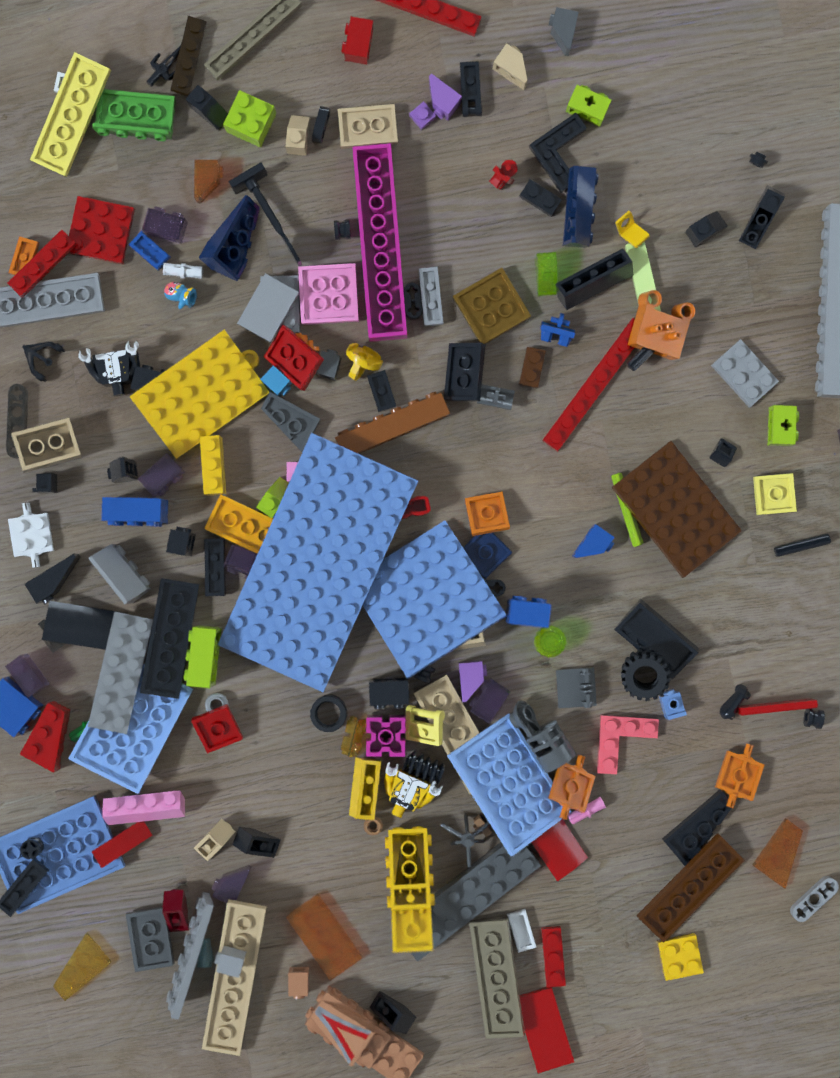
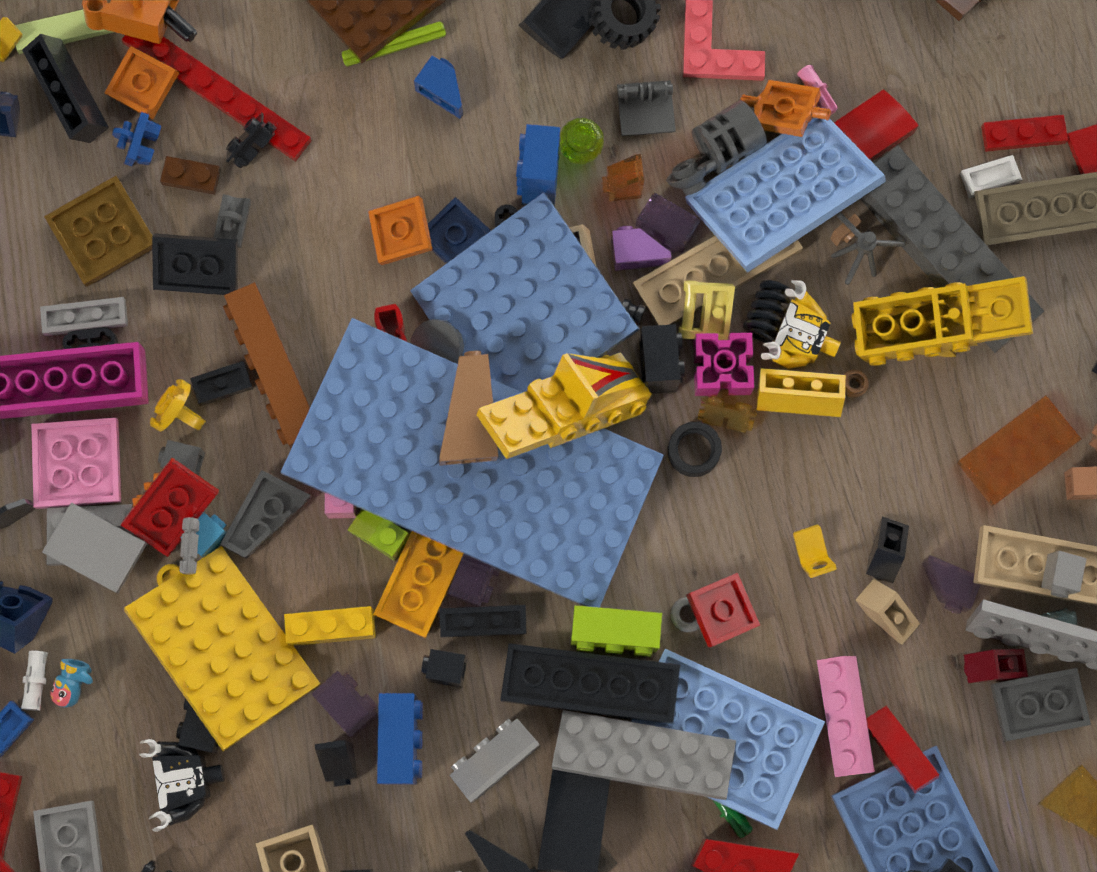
camera: 90 degrees left, 10 degrees down
(256, 791) = (812, 551): none -> yellow bracket
(265, 371) = (189, 546): none -> light grey axle
(345, 561) = (464, 434): none -> medium nougat slope
(352, 627) = (572, 403): none -> yellow wedge
(406, 539) = (440, 339): none -> dark grey tile
(520, 670) = (624, 179): none -> clear orange slope
(546, 273) = (54, 156): clear neon green slope -> none
(548, 402) = (255, 132): none -> black hinge
(599, 332) = (141, 82): none -> orange plate

